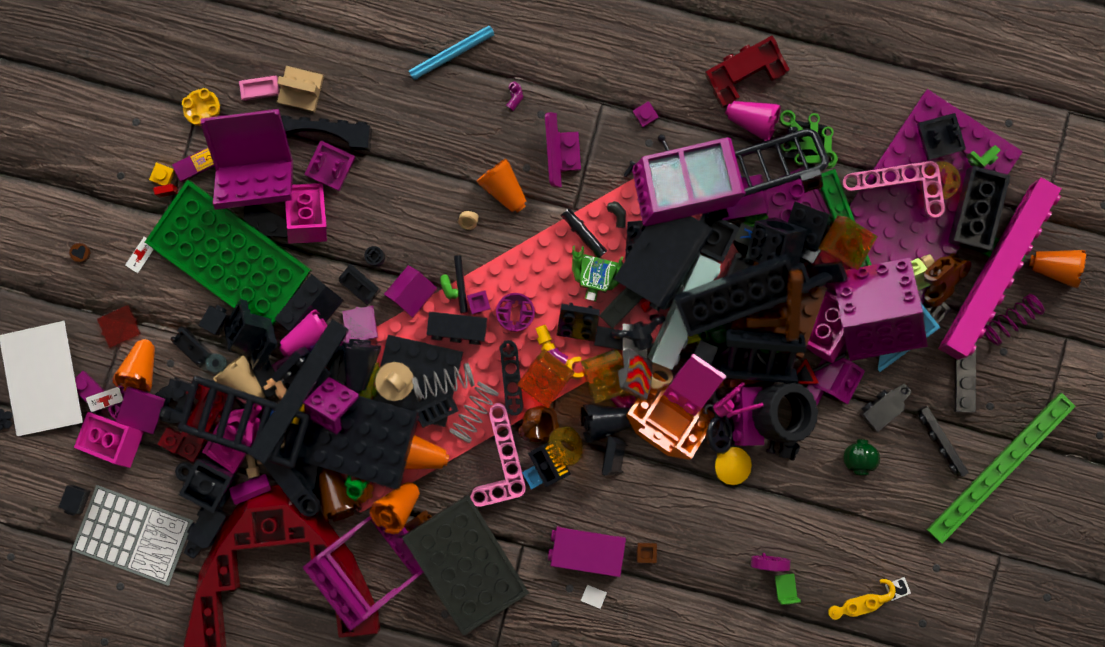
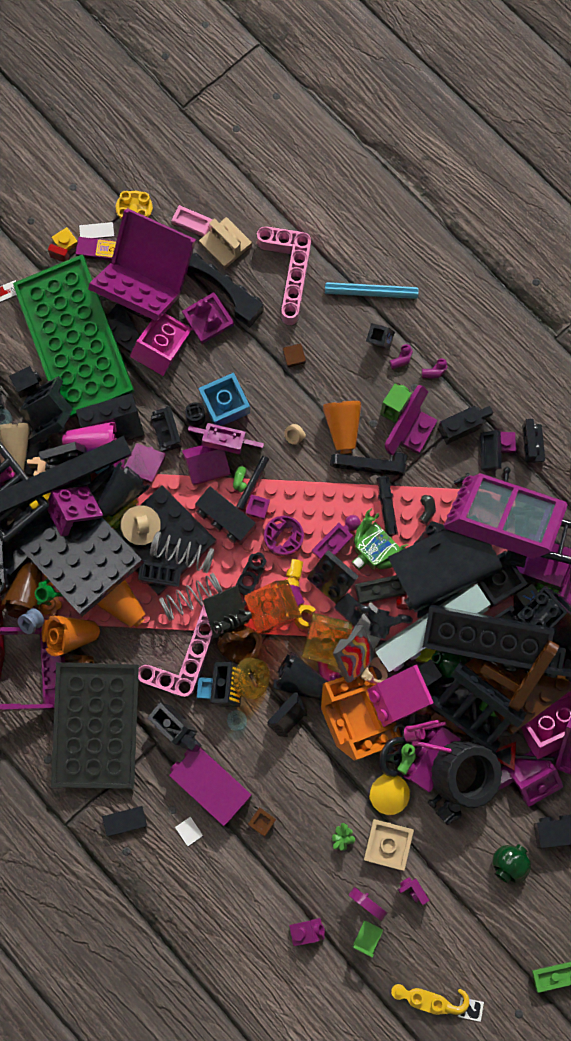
camera: 30 degrees right, 10 degrees down
(183, 148) = (97, 230): none -> white sticker
(359, 518) = (30, 621): none -> sand blue wheel
(375, 75) = (295, 269): none -> bright pink beam
(392, 229) = (224, 400): none -> dark azure brick
(414, 263) = (224, 438): none -> magenta plate
(423, 151) = (294, 355): none -> reddish brown tile
(485, 90) = (380, 336): none -> black brick
(511, 407) = (226, 611): none -> pearl dark grey hinge
(530, 525) = (174, 727): none -> black hinge
(535, 140) = (395, 402): none -> bright green brick
(538, 622) = (124, 821): none -> black tile
(551, 88) = (437, 371): none -> magenta arm
(560, 286) = (337, 537): none -> magenta plate
(569, 193) = (394, 466): none -> black beam
(574, 485) = (237, 720): none -> clear light blue tile
(602, 121) = (463, 423): none -> black hinge
(638, 130) = (491, 450): none -> black tile
(668, 100) = (533, 442): none -> black bracket
(718, 523) = (343, 837): none -> bright green plant
(731, 429) = (408, 758): none -> bright green arm
(736, 613) = (307, 932): none -> magenta bracket
(757, 505) = (388, 845): none -> tan plate
(802, 528) = (417, 892): none -> magenta bracket

